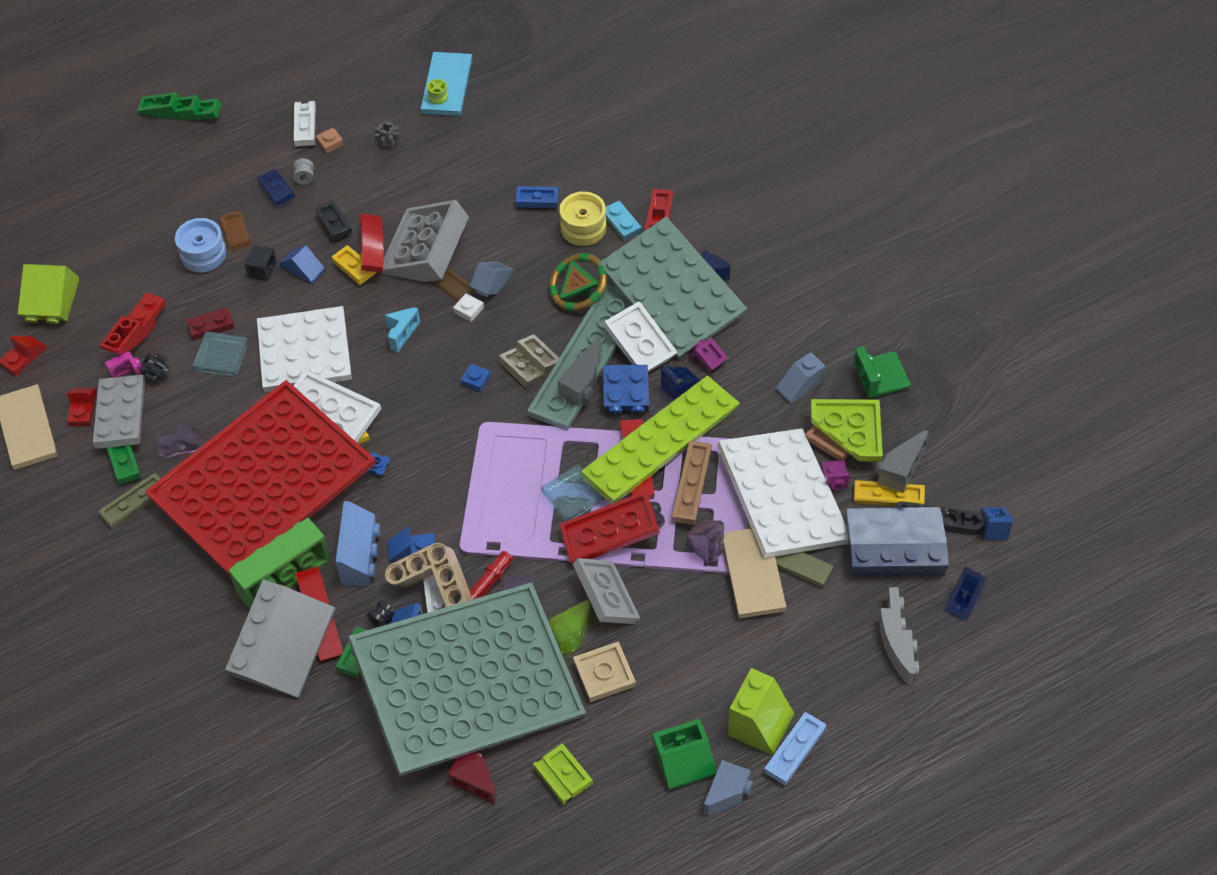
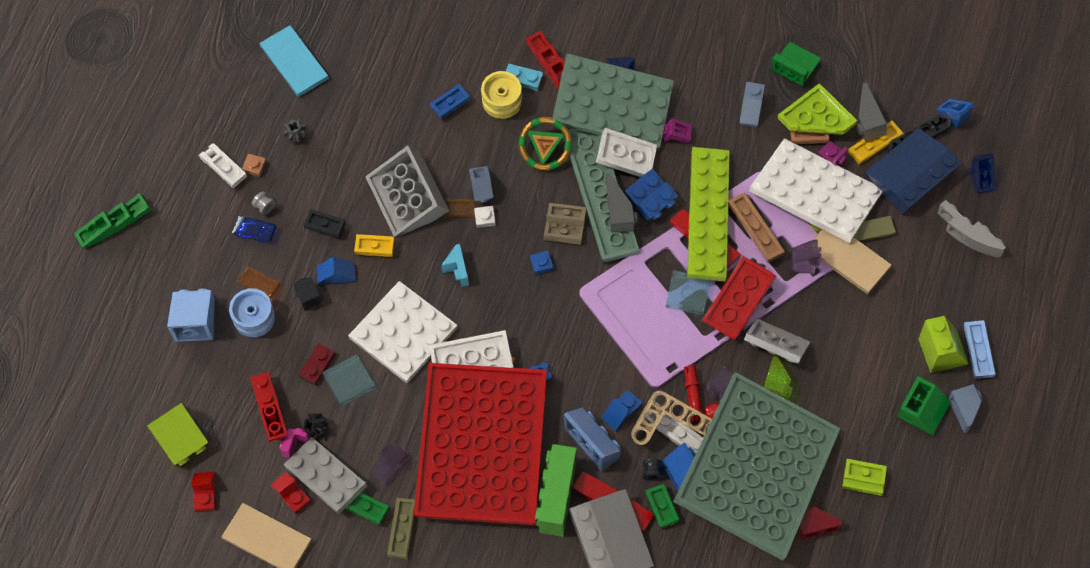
camera: 40 degrees left, 10 degrees up
(154, 214) = (192, 315): none -> light blue slope
(371, 243) = (372, 219): red slope -> none
(437, 91) = (296, 68): lime wheel -> none
(604, 671) = (824, 393): tan plate -> none
(677, 380) = (677, 165): clear blue slope -> none

